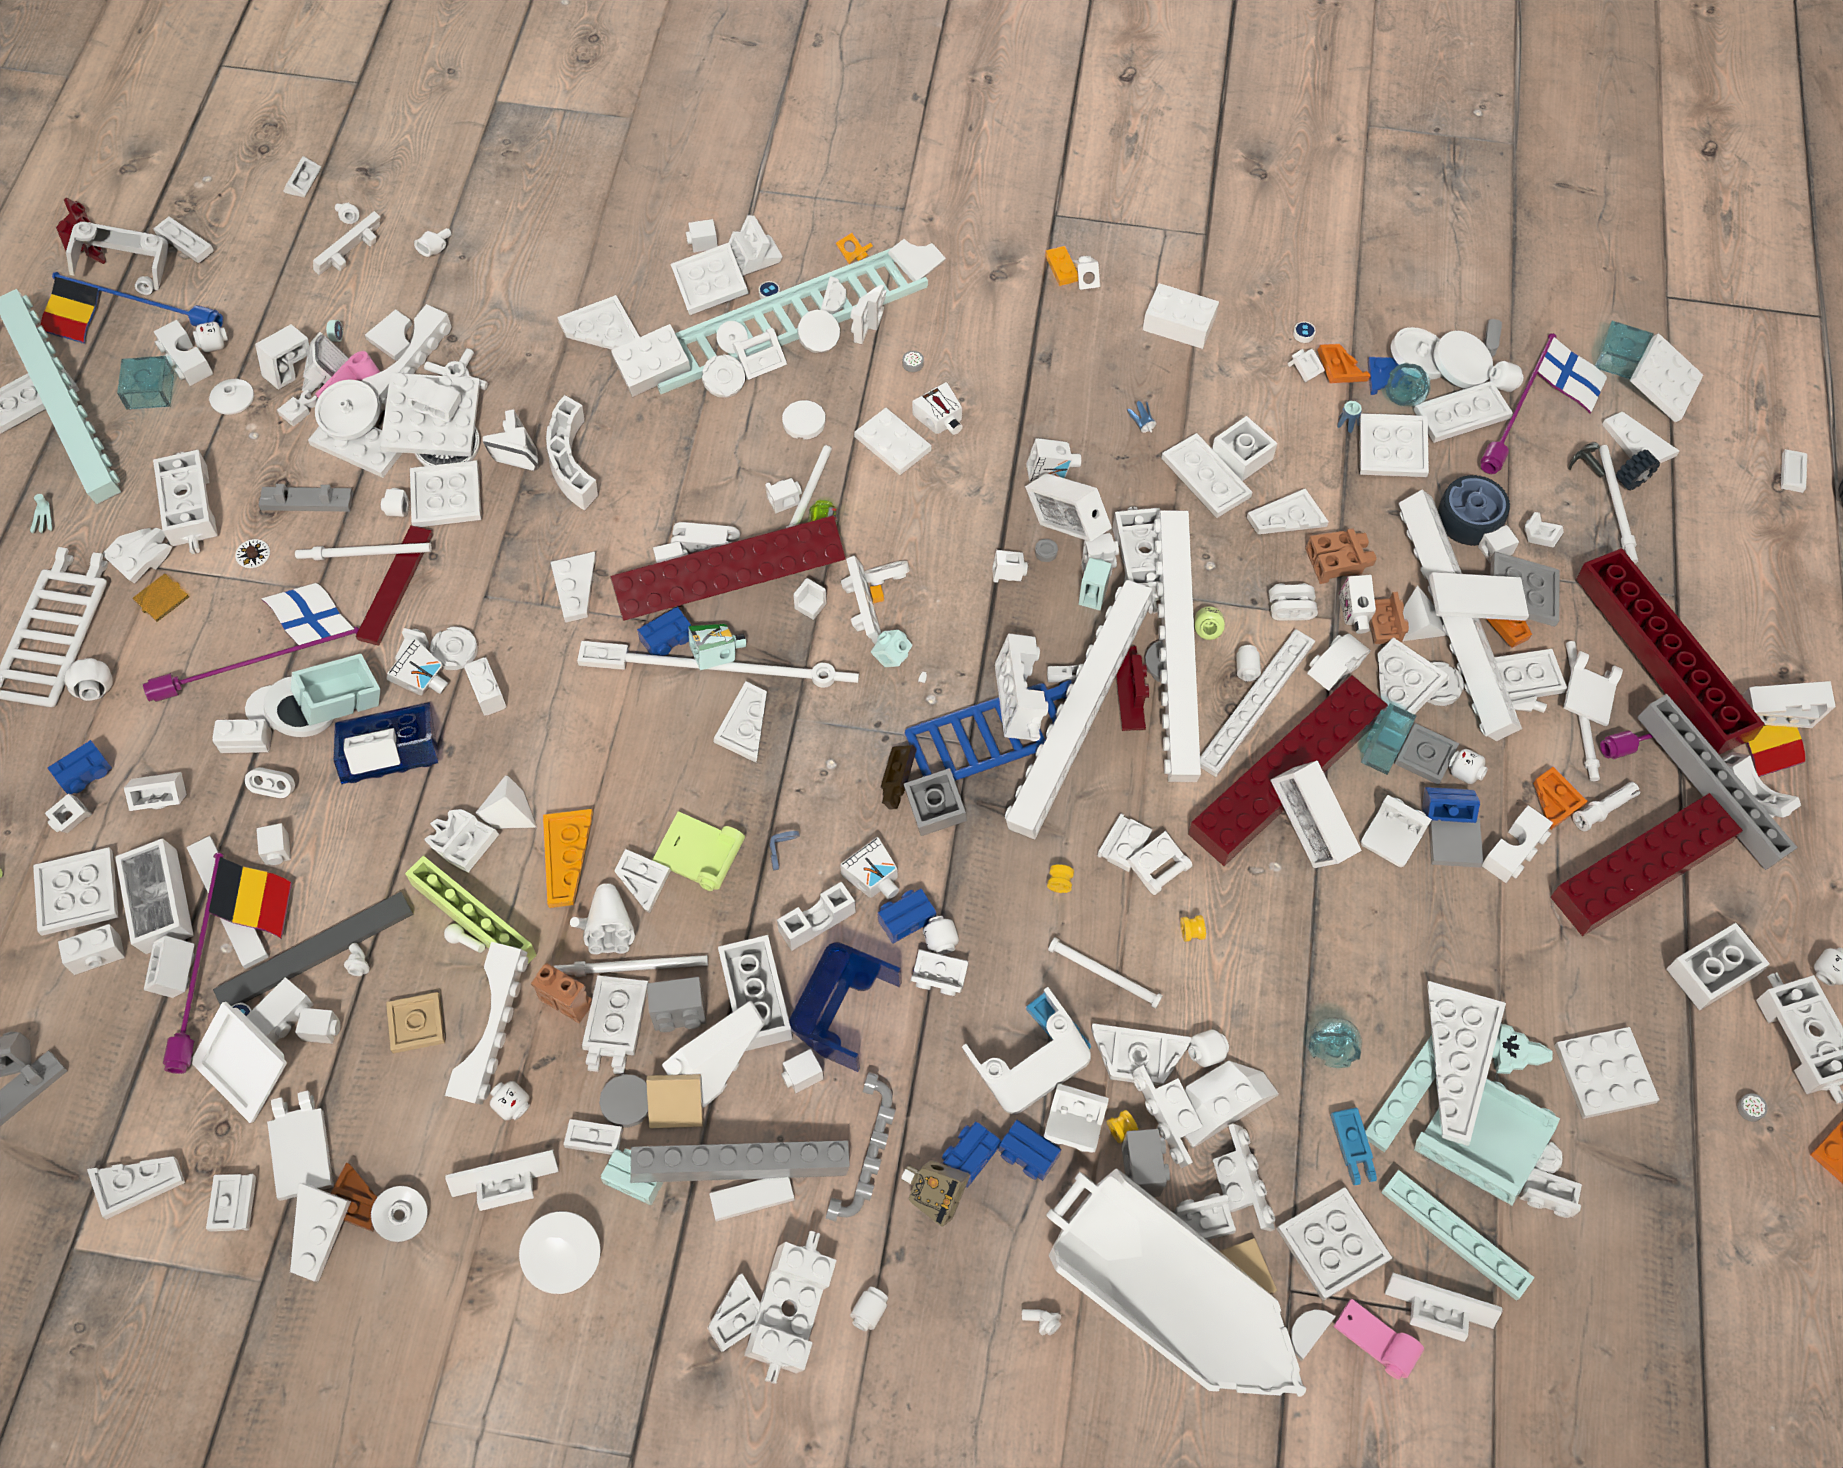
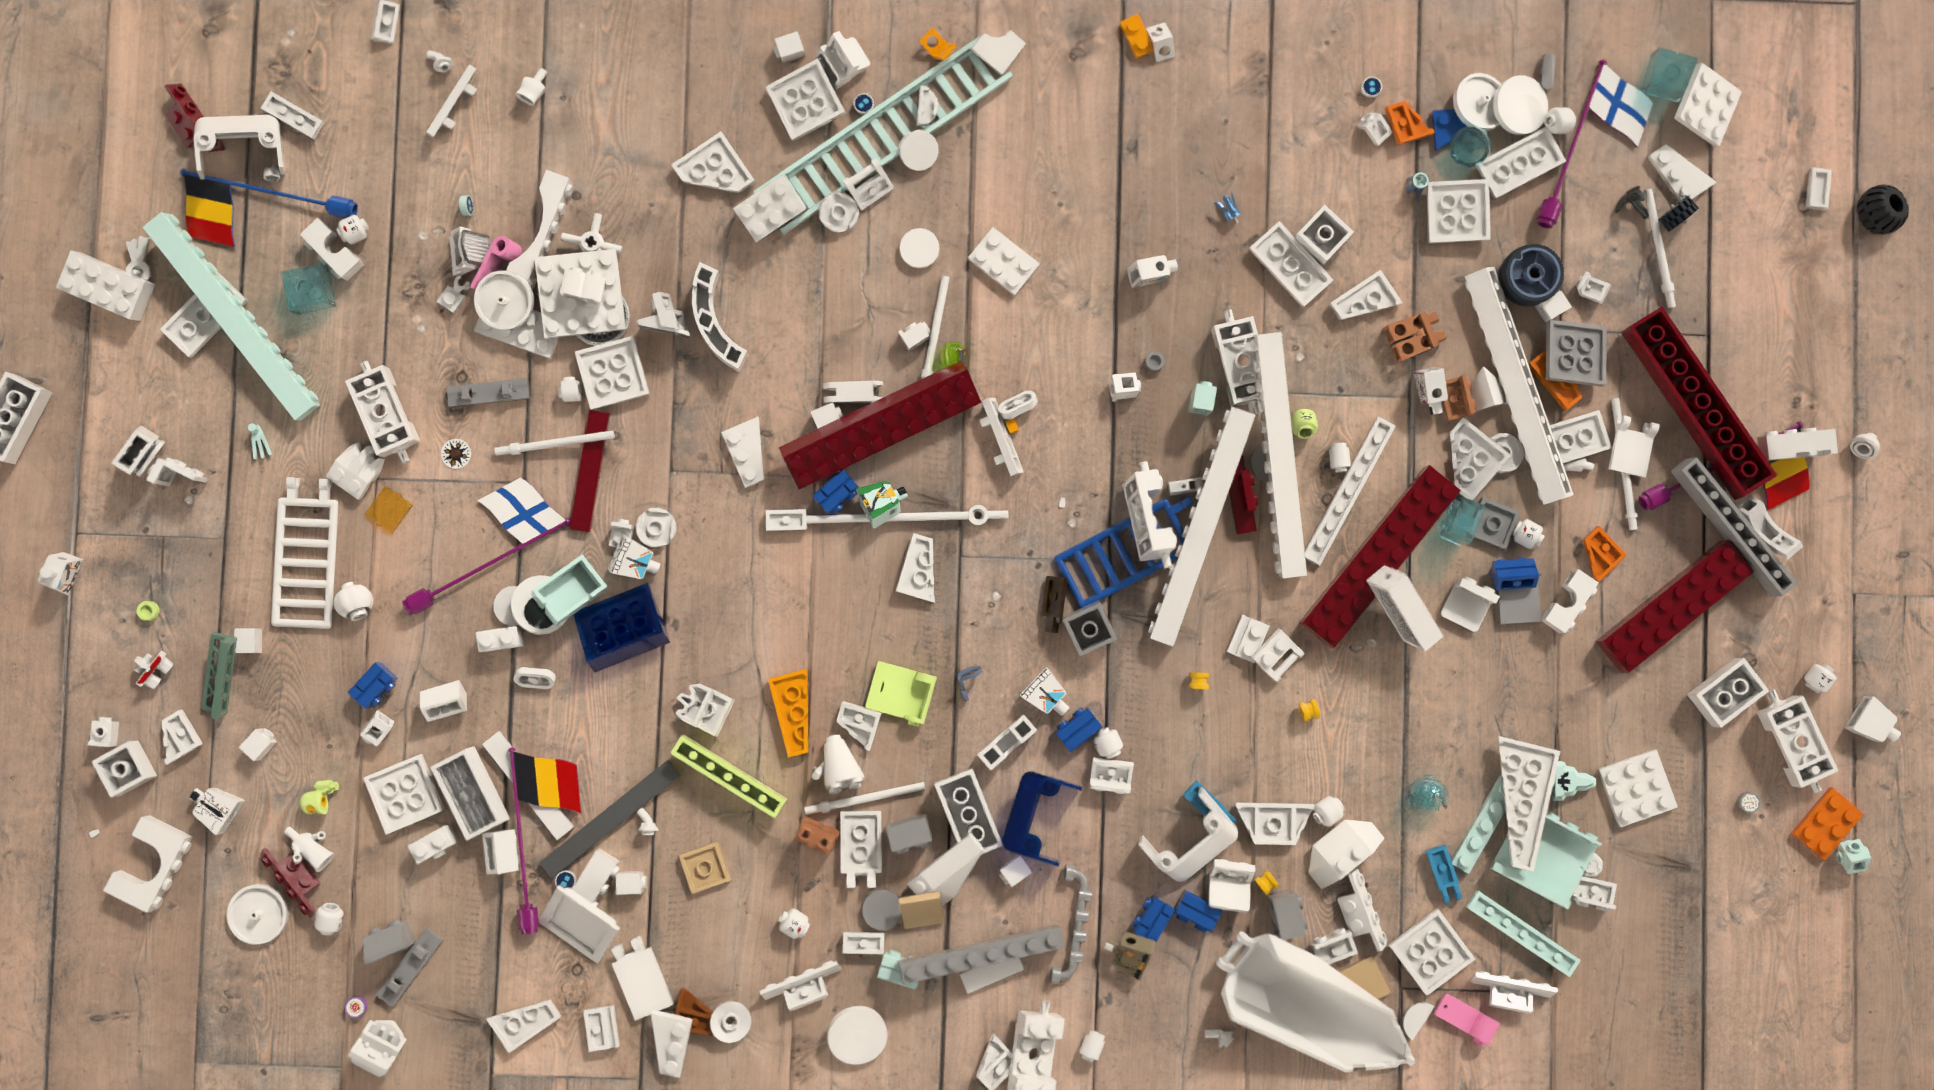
camera: 10 degrees left, 25 degrees up
(231, 396) = (398, 290): white dish -> none
(273, 844) = (553, 734): white brick -> none
(279, 353) = (427, 246): white brick -> none
(371, 751) = (615, 646): white panel -> none
(391, 335) = (518, 201): white tile -> none
(455, 933) = (718, 790): white bar -> none
(471, 1077) = (769, 831): white arch -> none
(485, 686) = (692, 565): white brick -> none
(507, 807) = (736, 673): white slope -> none
(729, 333) = (839, 168): white piece -> none
(810, 598) = (955, 442): white panel -> none
(867, 313) = (962, 125): white plate -> none
(891, 648) = (1033, 483): light aqua brick -> none
(913, 361) = (1010, 168): tile -> none
(939, 410) = (1043, 225): white torso -> none
(1068, 507) = (1173, 332): white brick -> none
(1101, 548) = (1203, 370): white brick -> none
(1105, 972) = (1200, 738): white bar -> none
(1172, 1112) = (1305, 870): white bracket -> none
(1180, 315) = (1255, 87): white brick -> none
(1293, 602) = (1382, 381): white brick -> none
(1338, 661) = (1421, 442): white brick -> none
(1478, 596) = (1537, 376): white tile -> none
(1599, 810) = (1636, 560): white pin -> none

